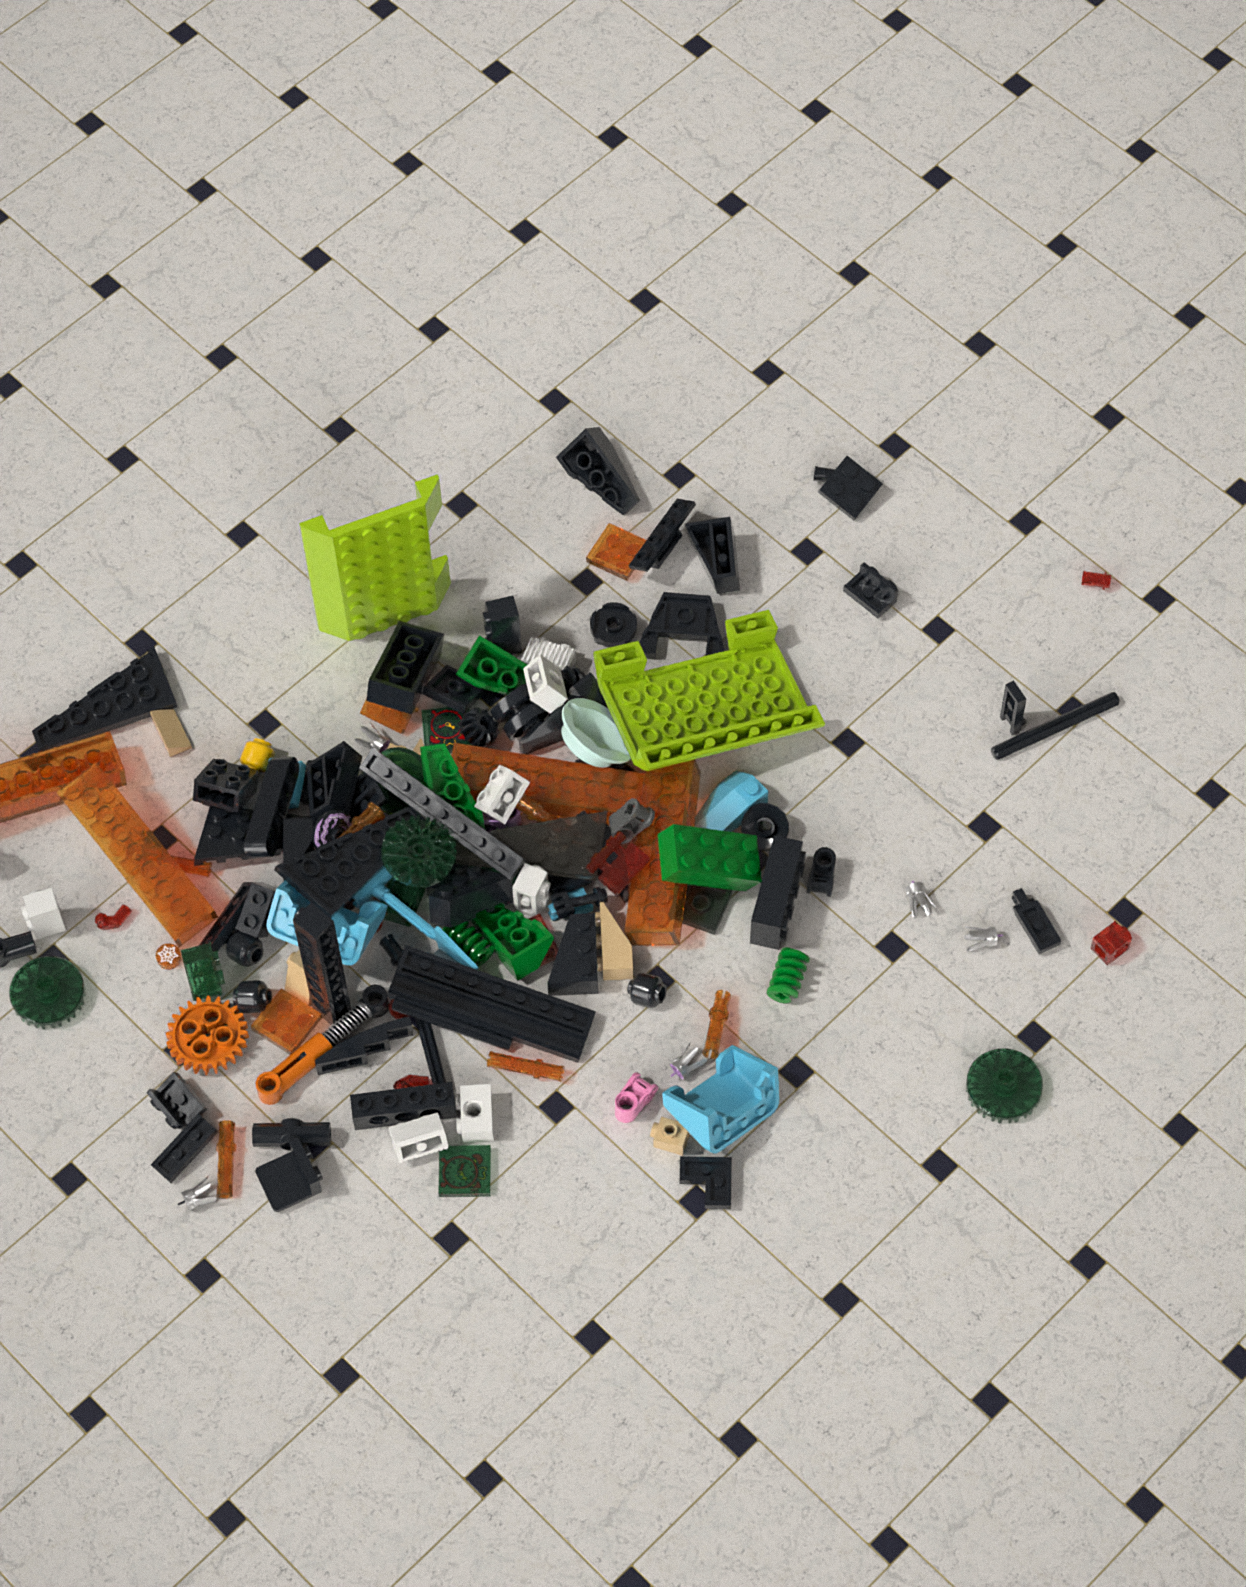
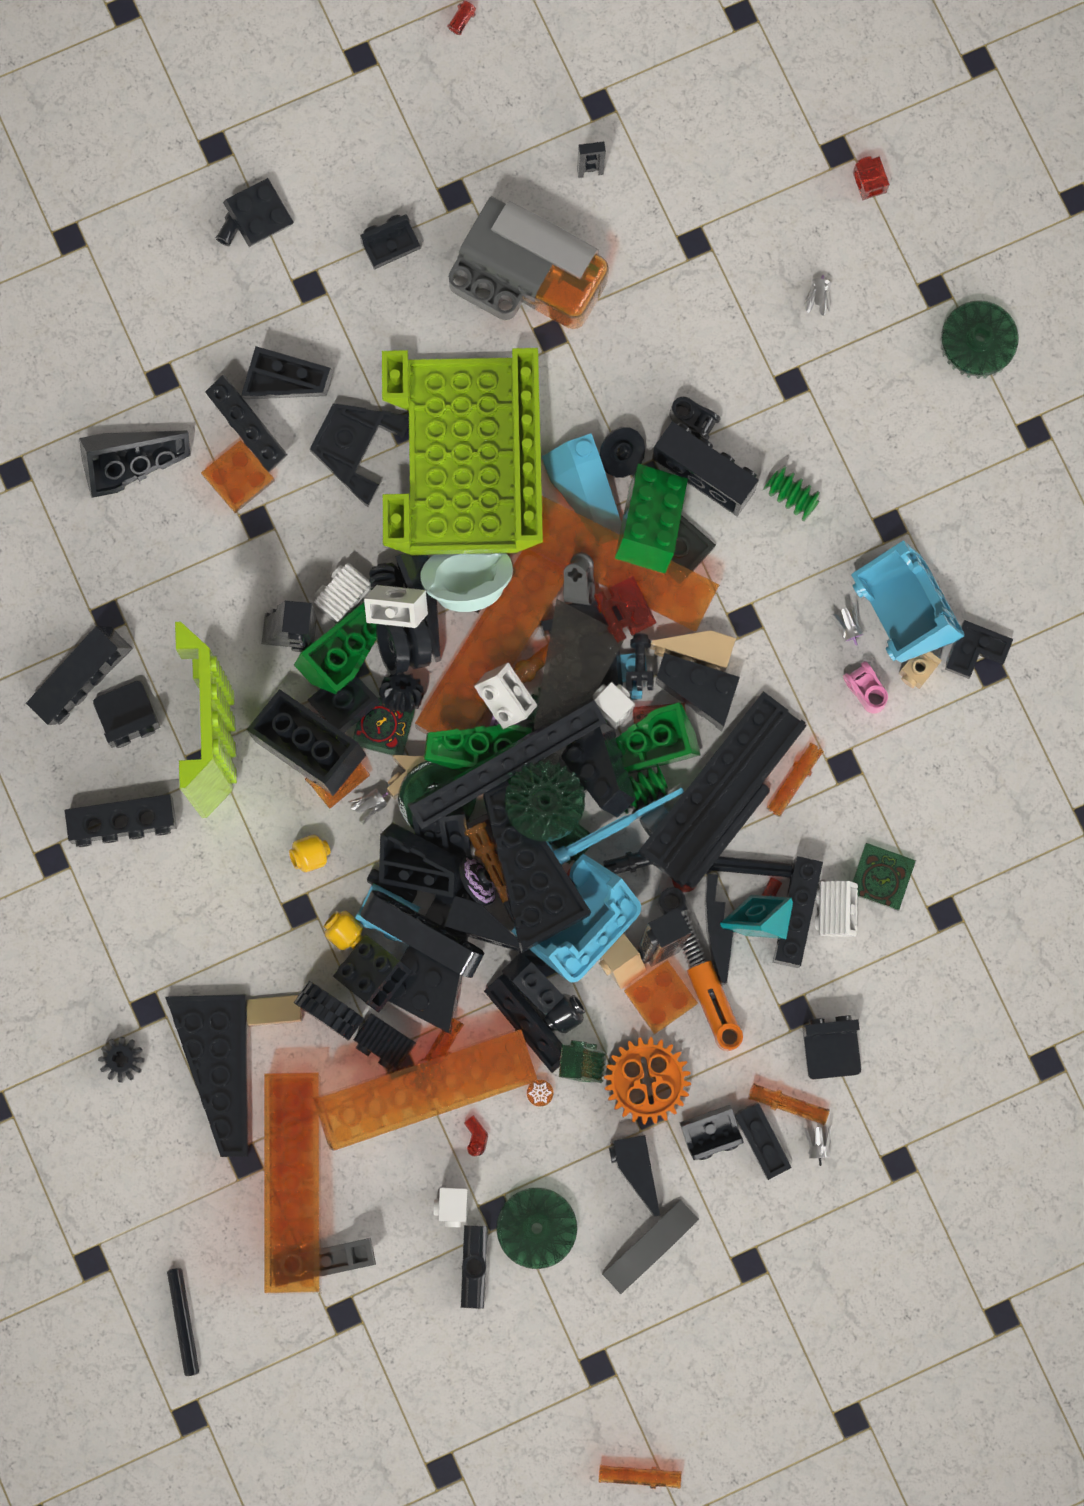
camera: 75 degrees left, 20 degrees up
(62, 1089) = (650, 1247): none -> dark grey slope
(90, 633) = (127, 1052): none -> black gear
(125, 1052) = (635, 1166): none -> black slope
(171, 818) = (384, 1042): none -> black brick
(180, 761) = (328, 1010): none -> black wheel
(252, 996) = (624, 1022): black head -> none
(280, 537) = (79, 818): none -> black brick
(281, 1133) = (786, 1031): black piece -> none
(314, 709) = (309, 853): none -> yellow head
(384, 1071) = (761, 917): none -> teal slope
(392, 488) = (78, 674): none -> black wedge
(475, 1099) = (845, 842): white brick -> none
(609, 636) = (320, 500): black plate -> none
(647, 990) = (758, 634): black head -> none
(718, 1016) = (812, 576): clear orange pin -> none
(897, 692) = (529, 263): none -> piece
(917, 891) = (749, 333): flat silver piece -> none
(1035, 922) = (820, 239): black hinge -> none
(1055, 725) = (612, 129): black axle -> none

